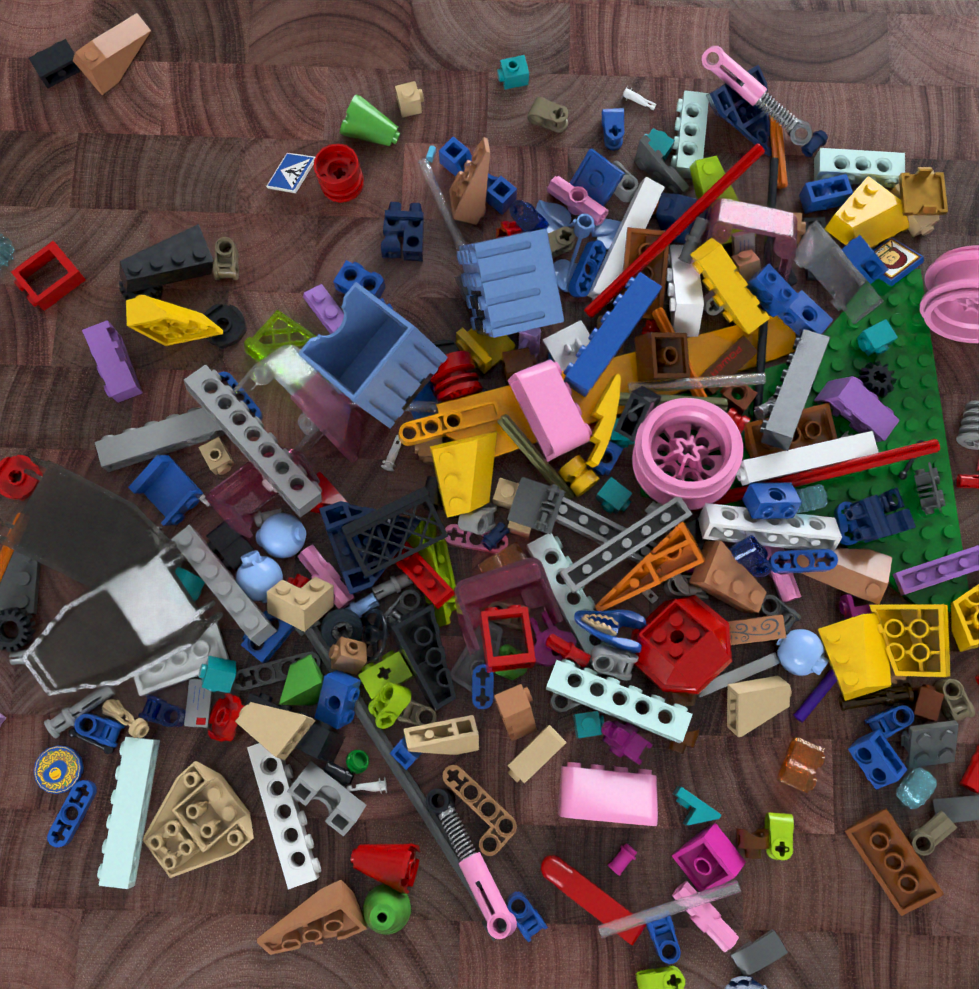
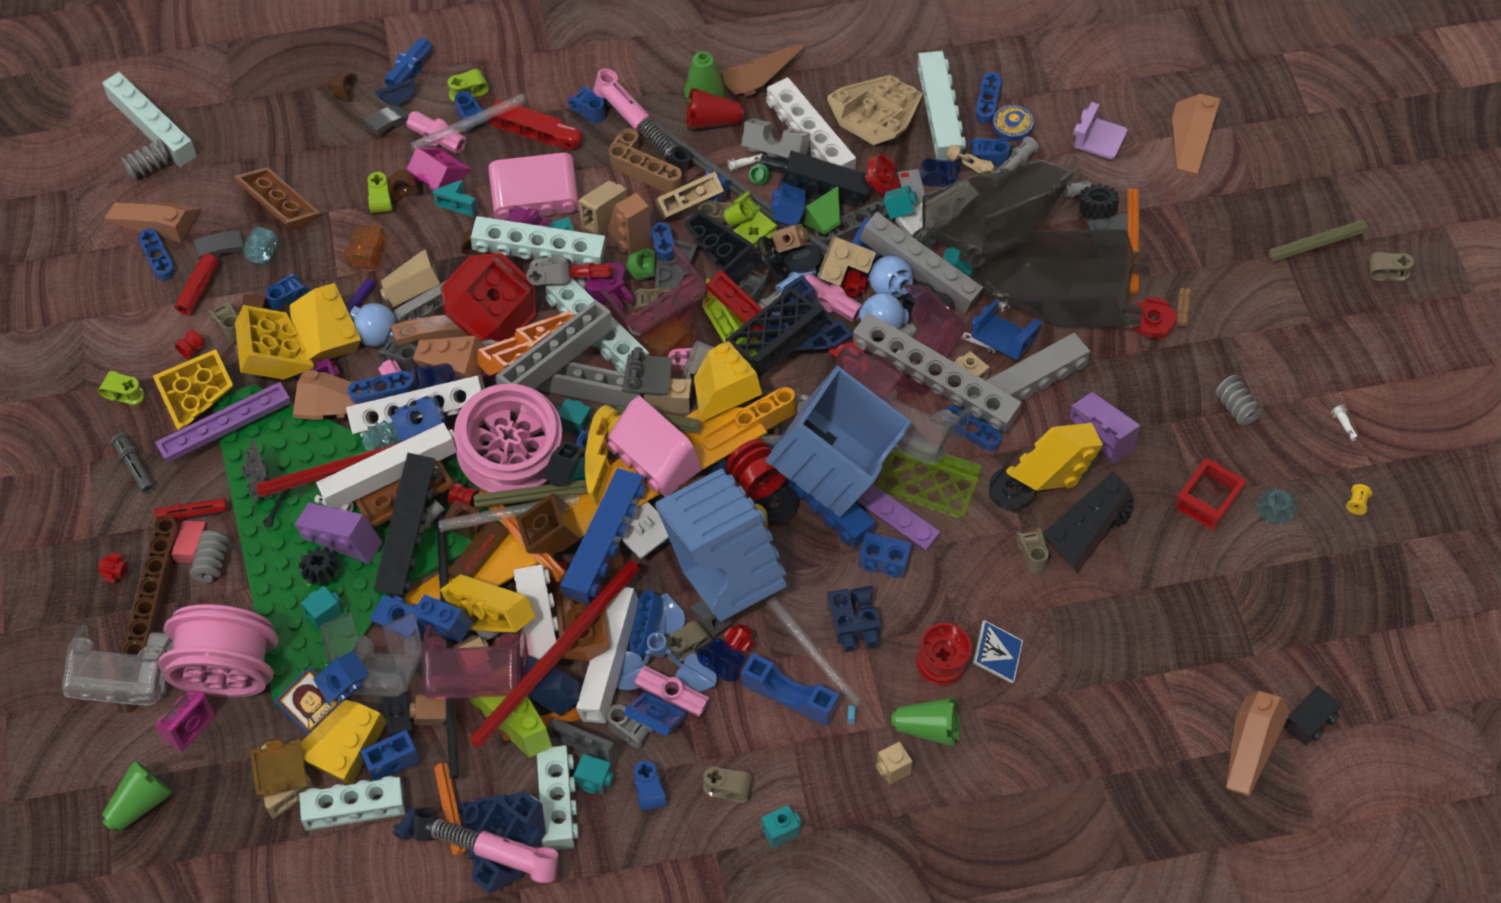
camera: 170 degrees right, 20 degrees down
(274, 728) = (835, 164): tan slope -> none
(470, 186) = (794, 659): nougat wedge -> none
(494, 536) = (681, 355): dark blue pin -> none
(507, 662) = (643, 248): red window -> none
(607, 624) = (561, 296): blue animal -> none
(622, 859) = (515, 151): dark pink pin -> none
(628, 94) = (626, 833): white piece -> none
(693, 240) = (534, 644): dark grey pin -> none
(844, 524) = (335, 436): blue beam -> none
(872, 519) = (310, 437): dark blue hips -> none
(877, 759) = (296, 259): blue brick -> none
(930, 743) = (238, 281): dark grey piece -> none
(934, 830) = (247, 217): dark tan piece -> none

